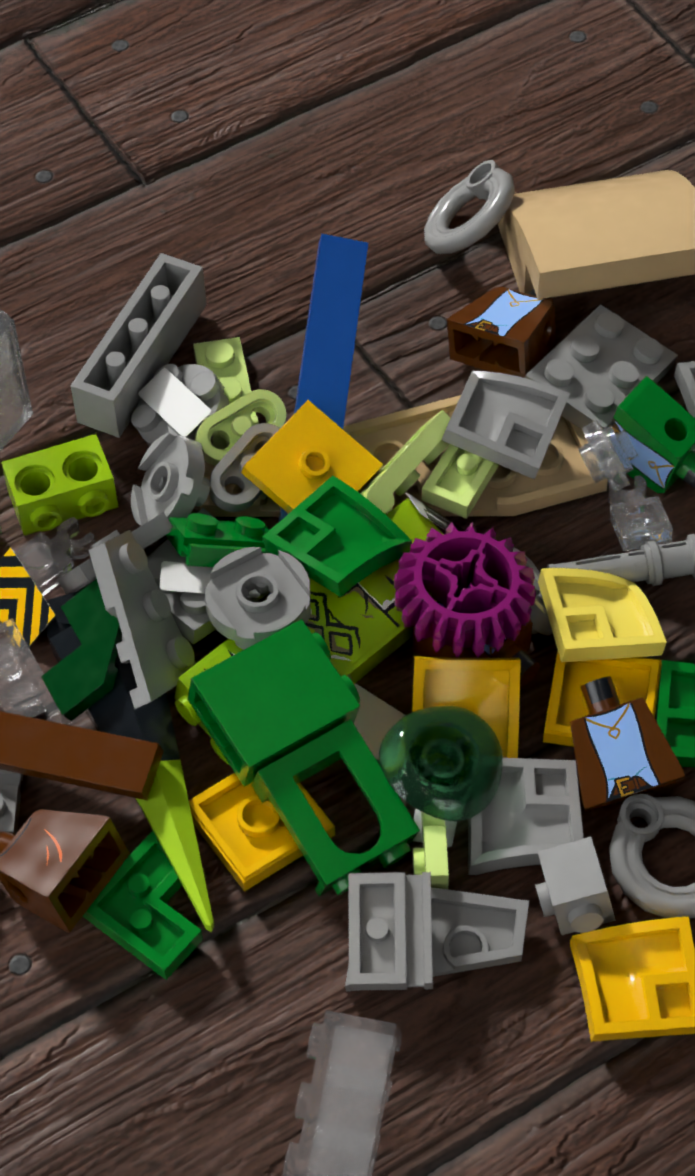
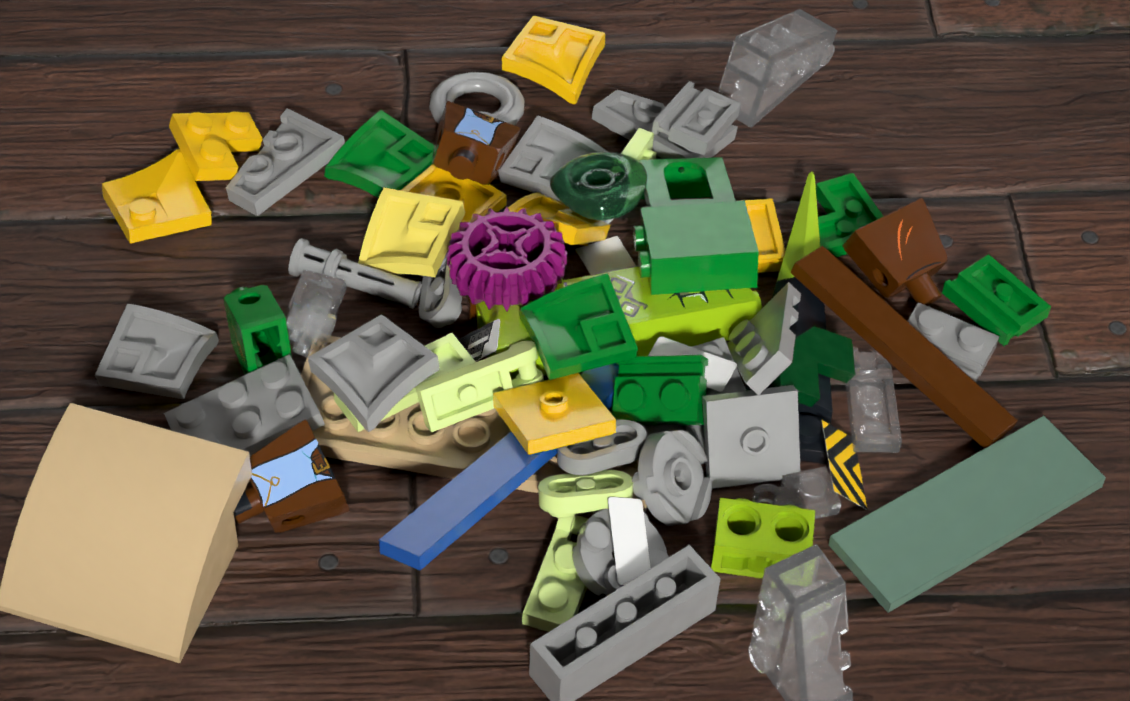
camera: 155 degrees left, 5 degrees down
(248, 570) = (668, 331): light grey plate -> none
(484, 182) = (186, 611): light grey piece -> none
(574, 887) = (560, 98): light grey brick -> none

